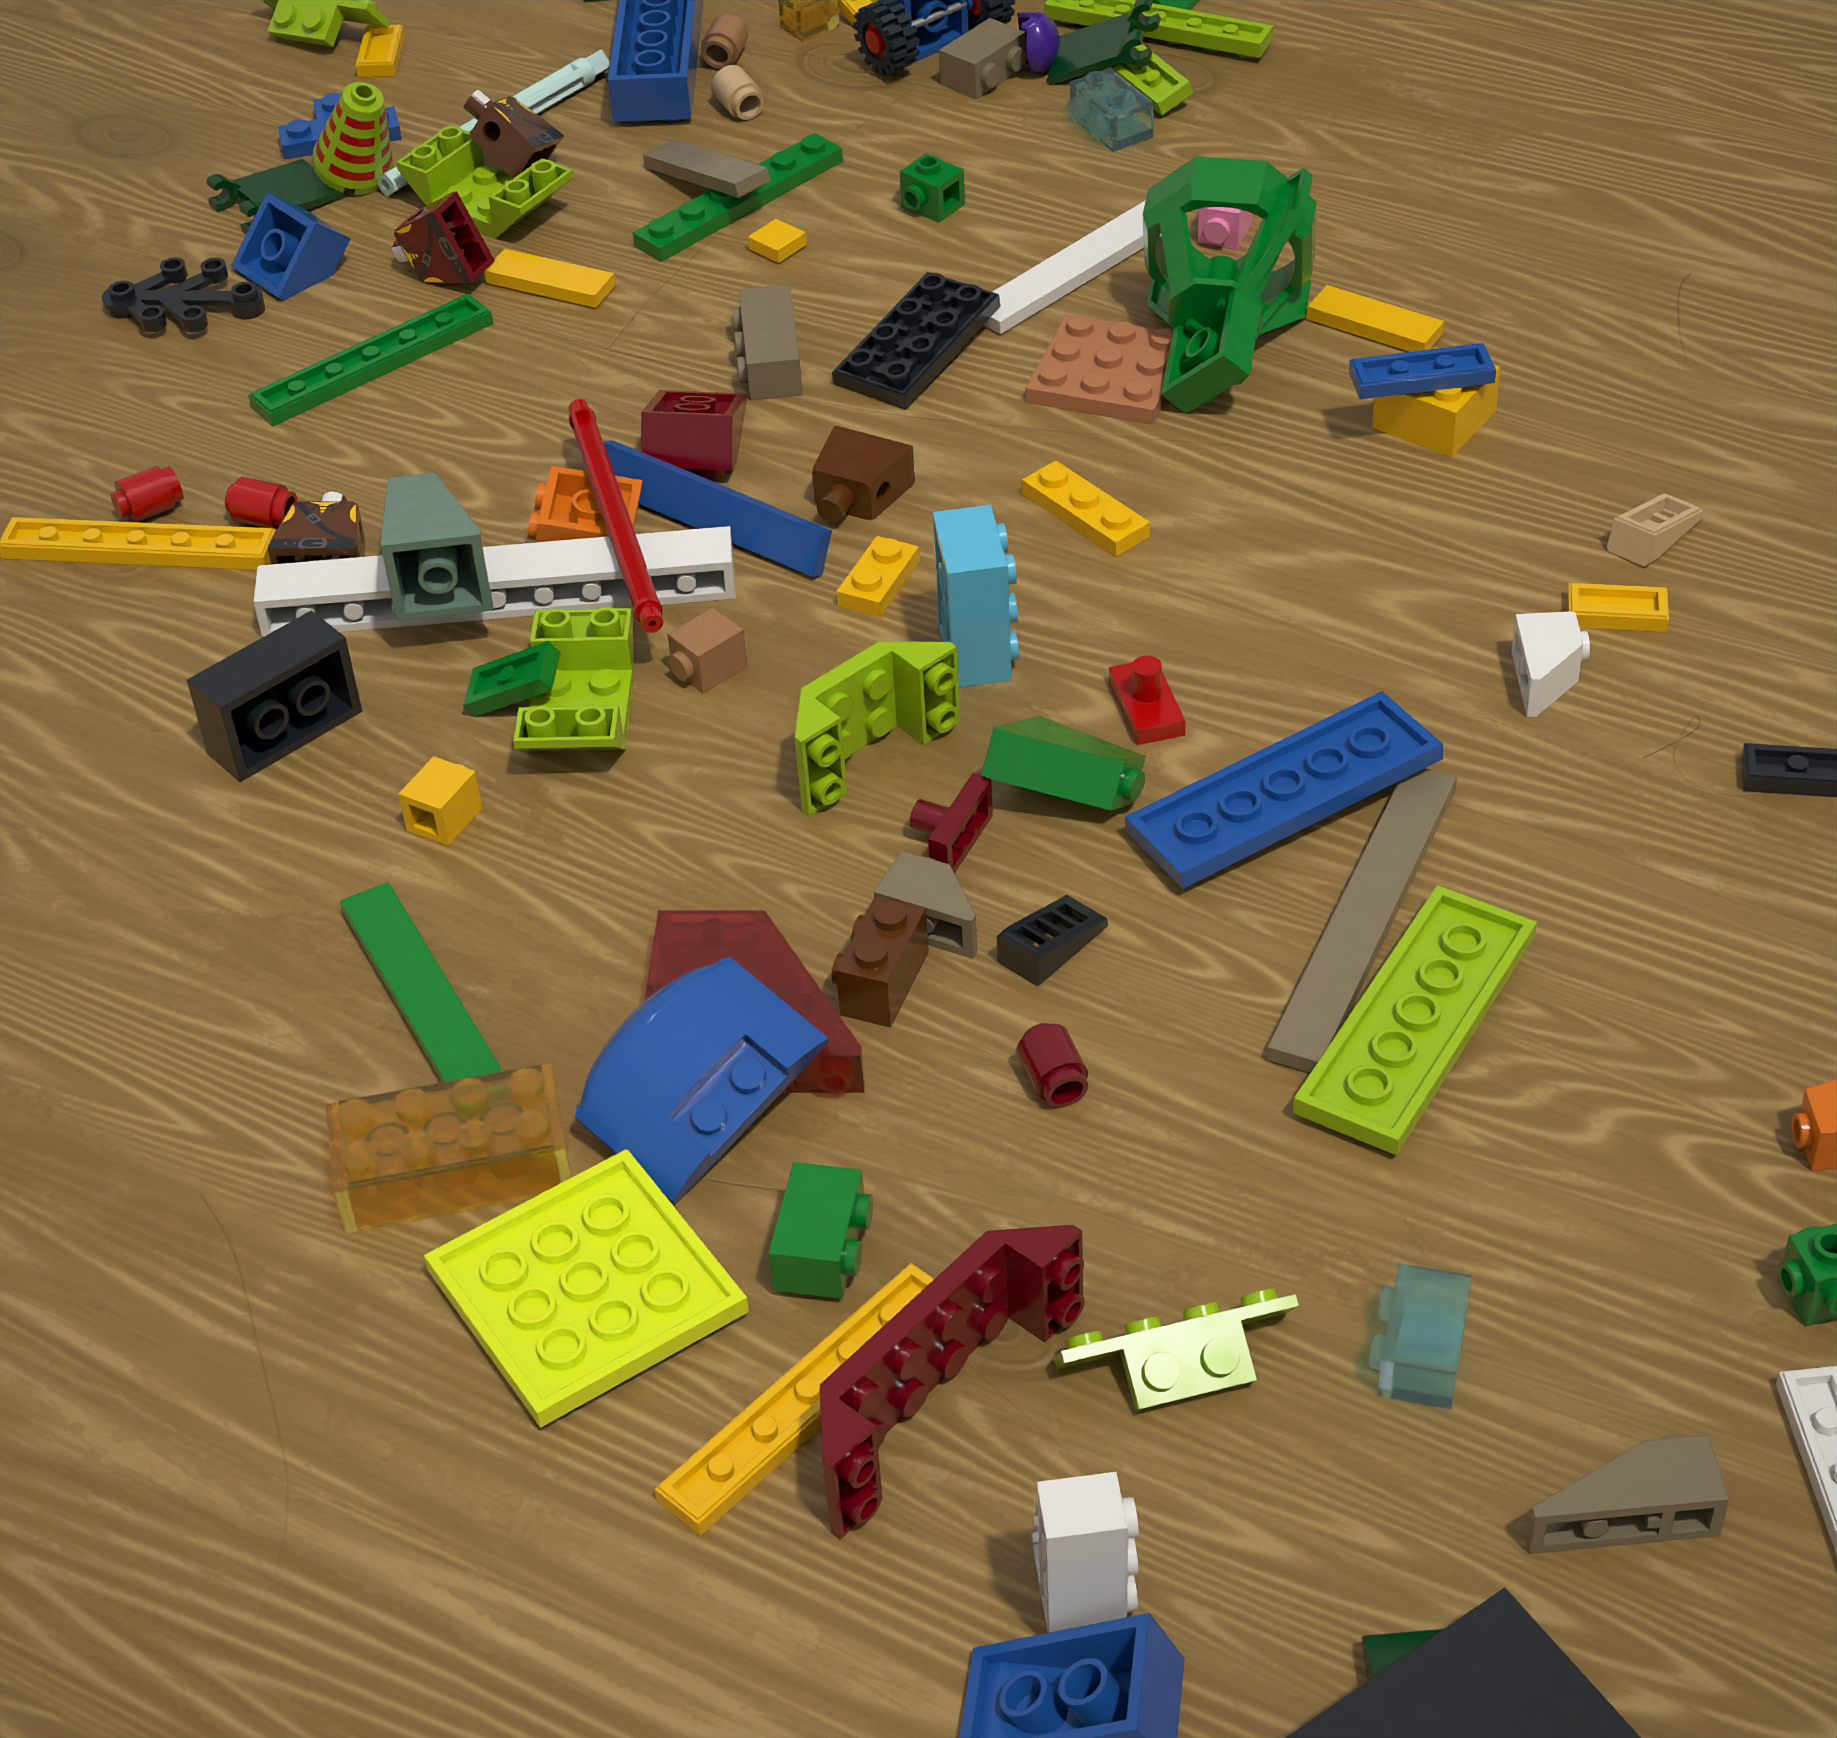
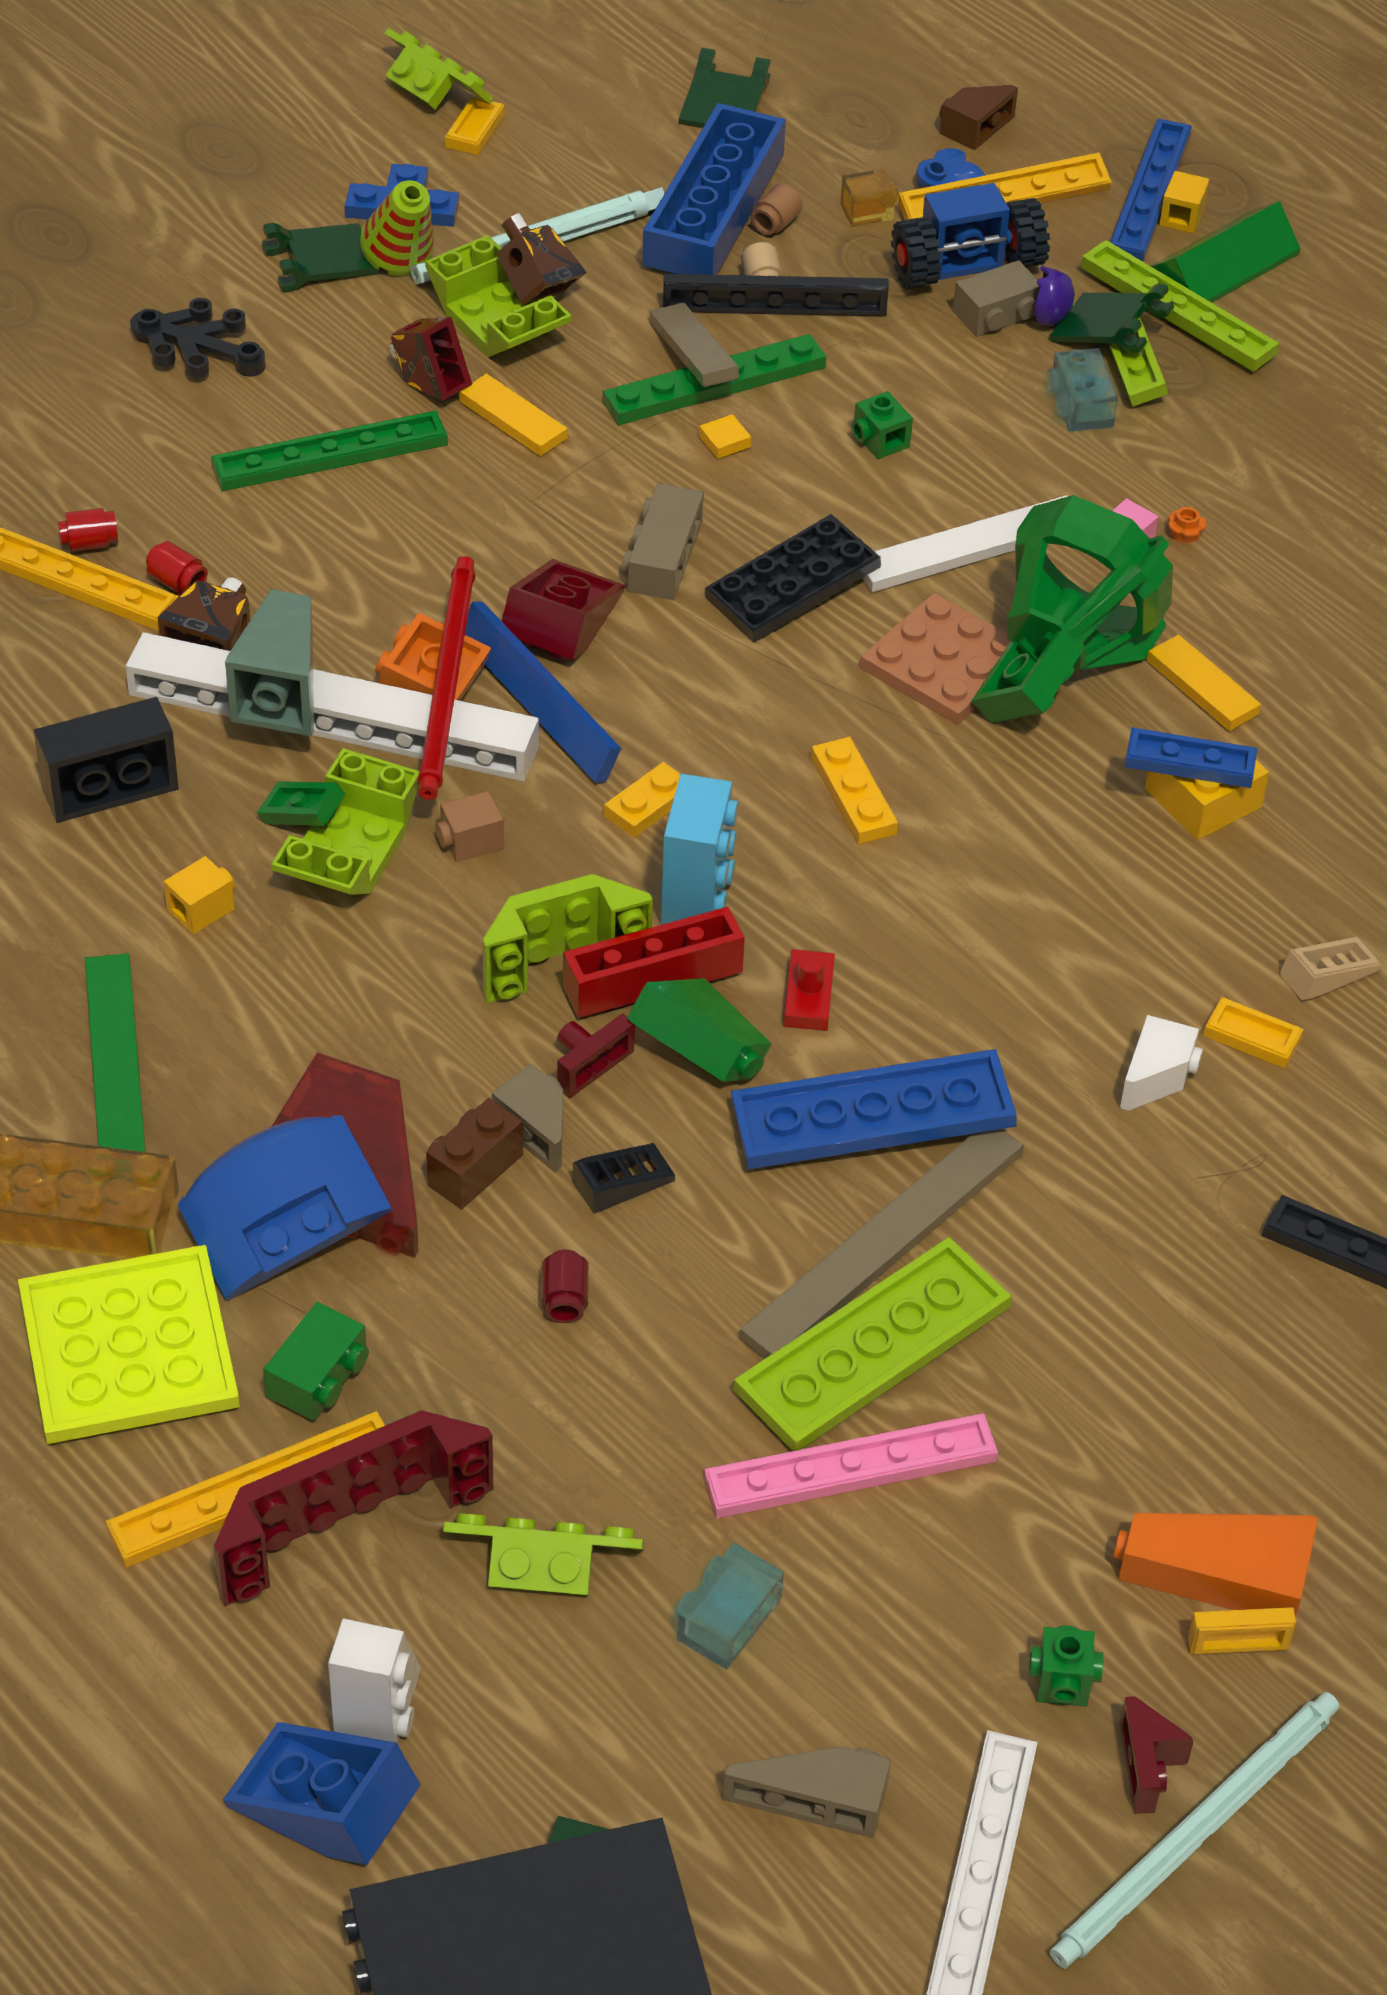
camera: 15 degrees right, 5 degrees up
(288, 248) = (304, 318): blue slope -> none
(765, 108) = (777, 294): none -> black tile
(860, 474) = (676, 699): reddish brown torso -> none
(957, 725) = (617, 969): none -> red brick
(1460, 1149) = (850, 1465): none -> bright pink tile

